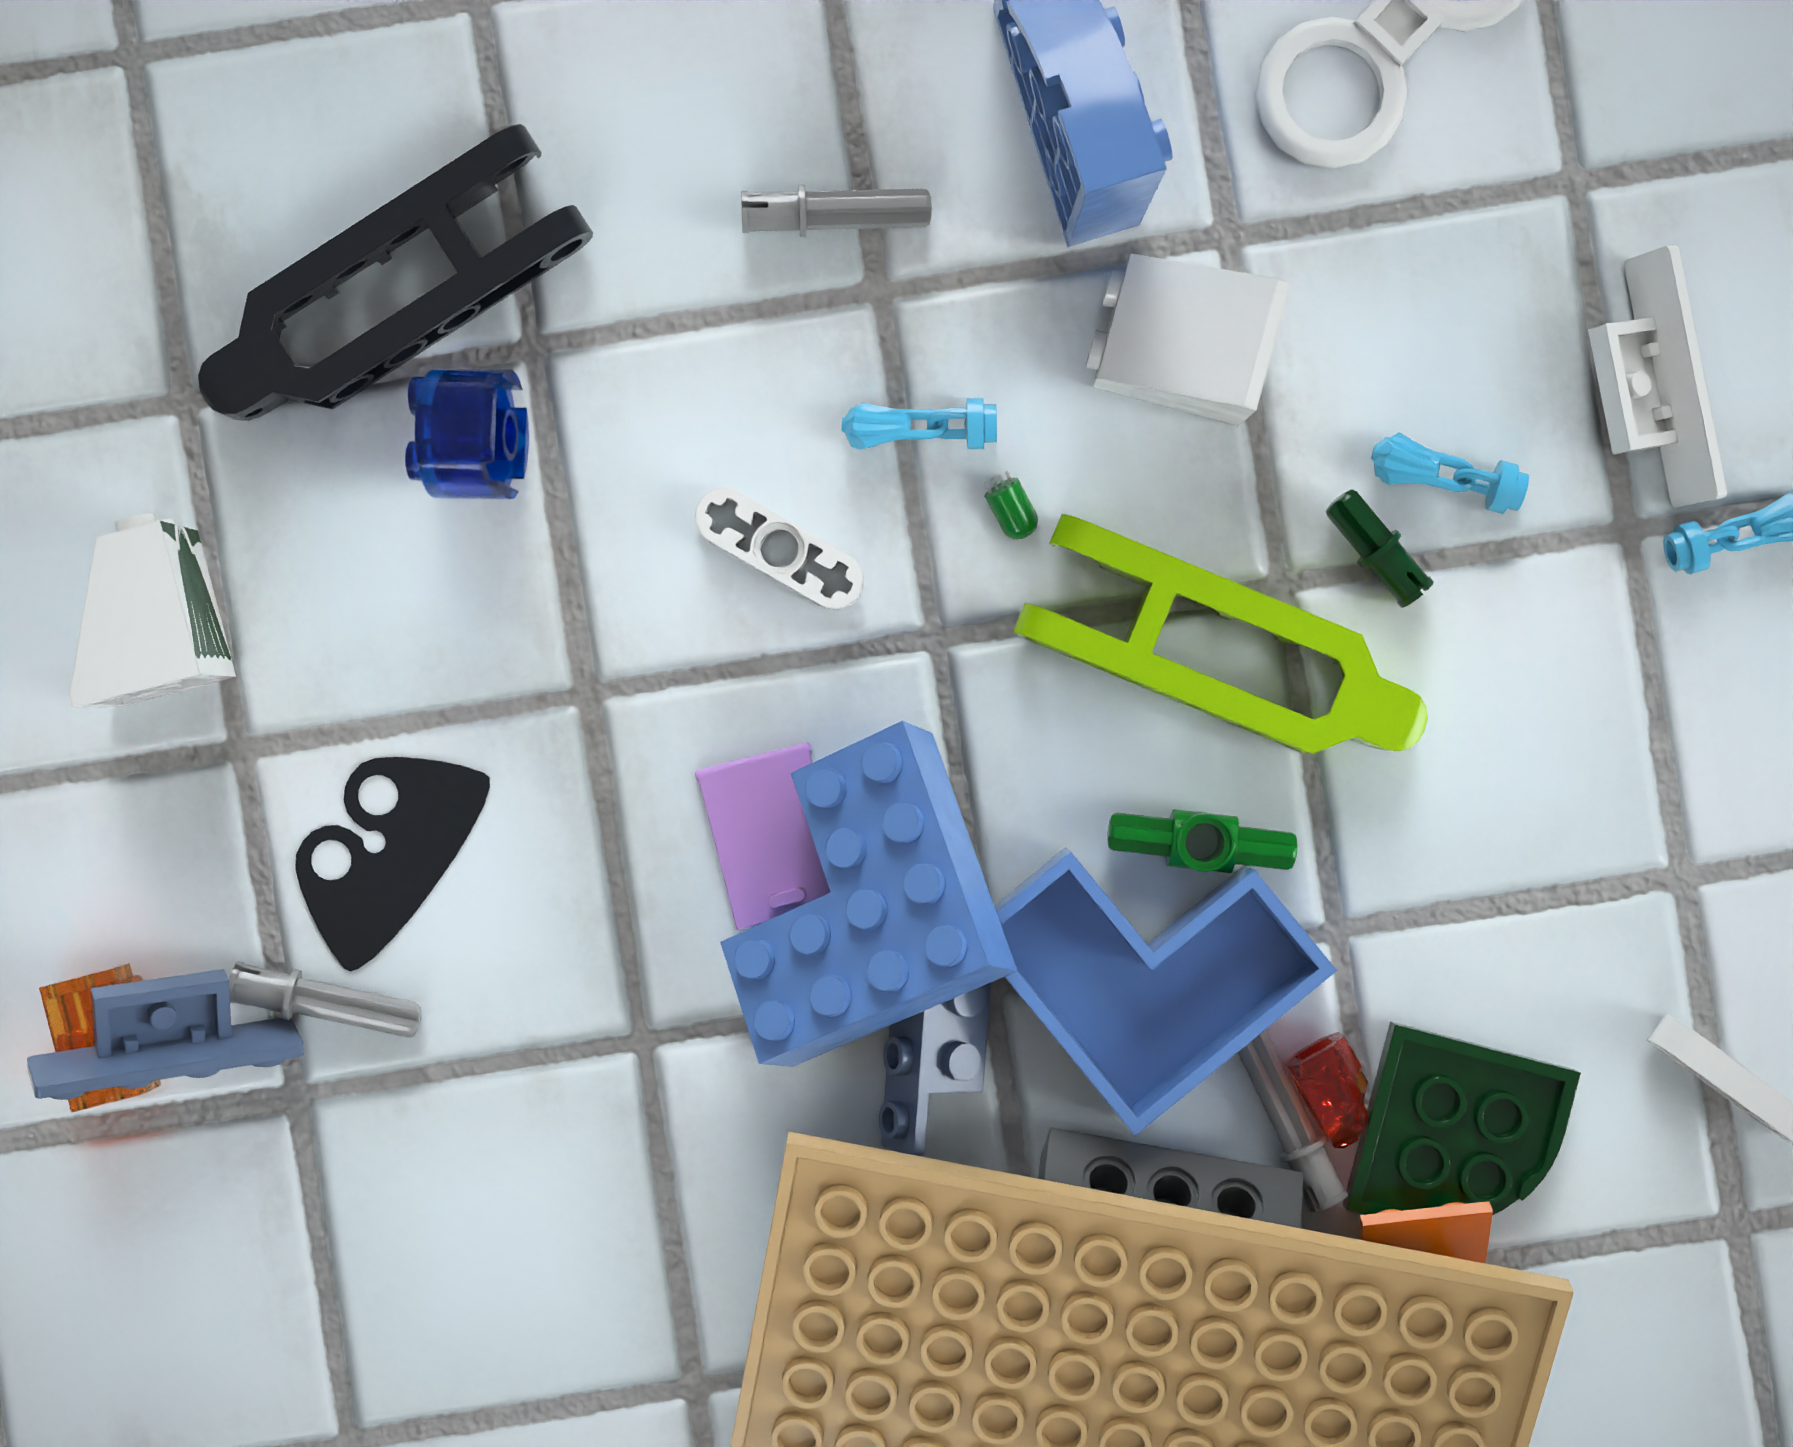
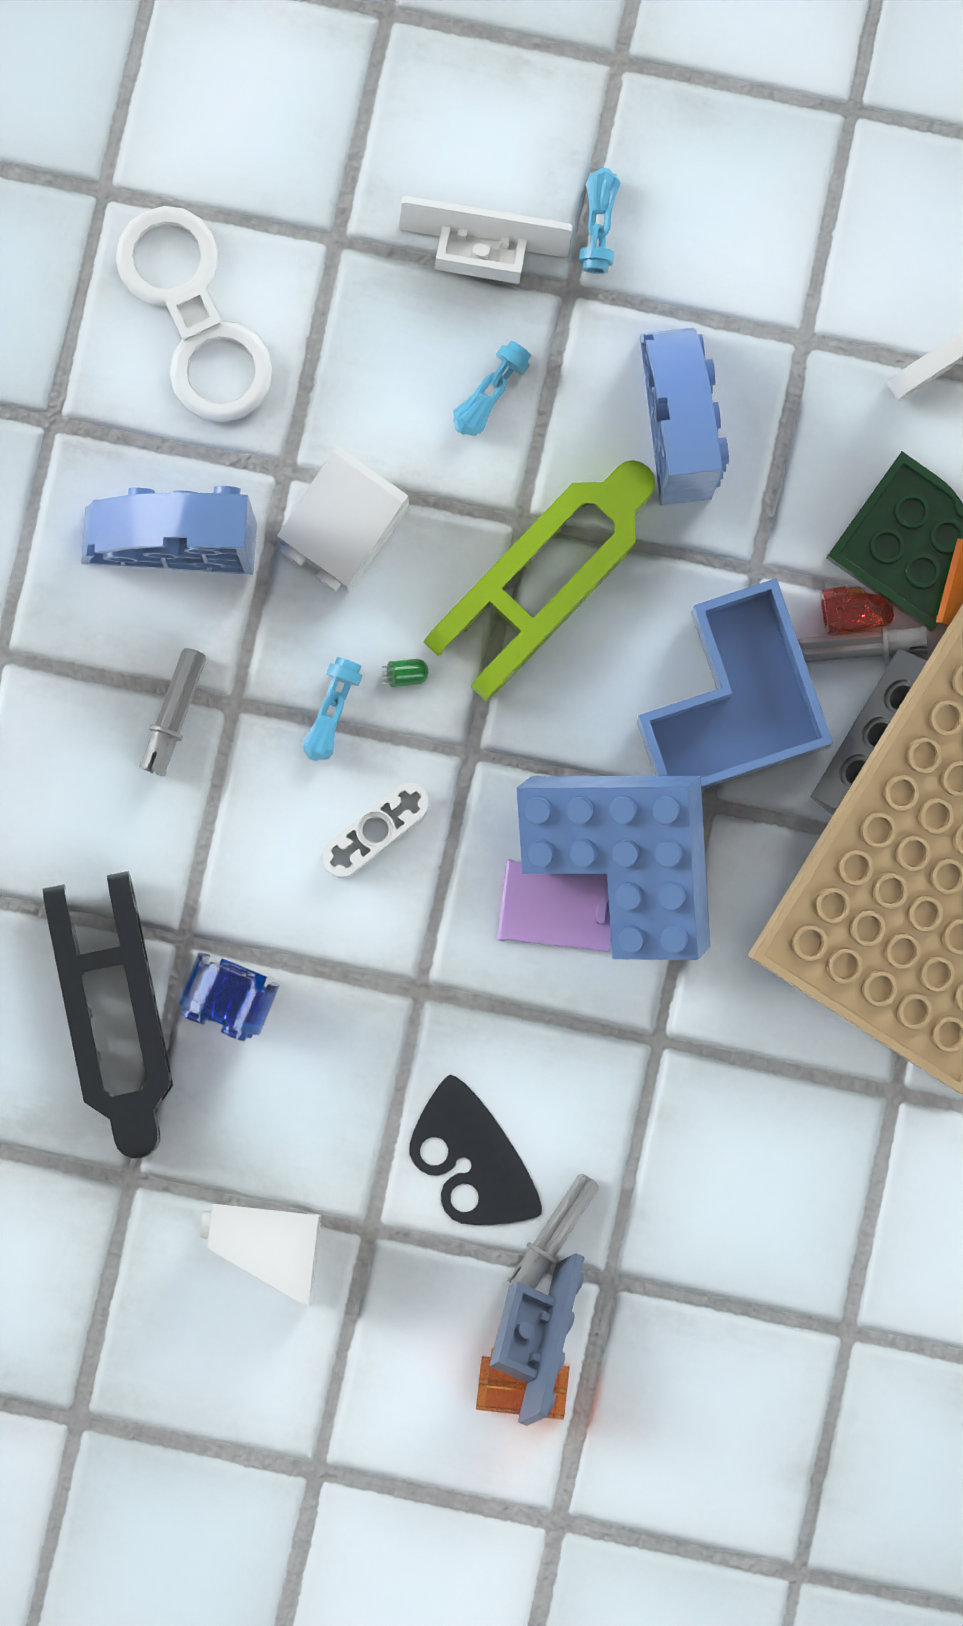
camera: 70 degrees left, 5 degrees down
(932, 1054) = (734, 856): sand blue bracket -> none
(1235, 843) = (674, 612): green axle -> none
(1378, 548) = (521, 451): dark green axle -> none
(1516, 755) = (683, 416): none -> medium blue brick

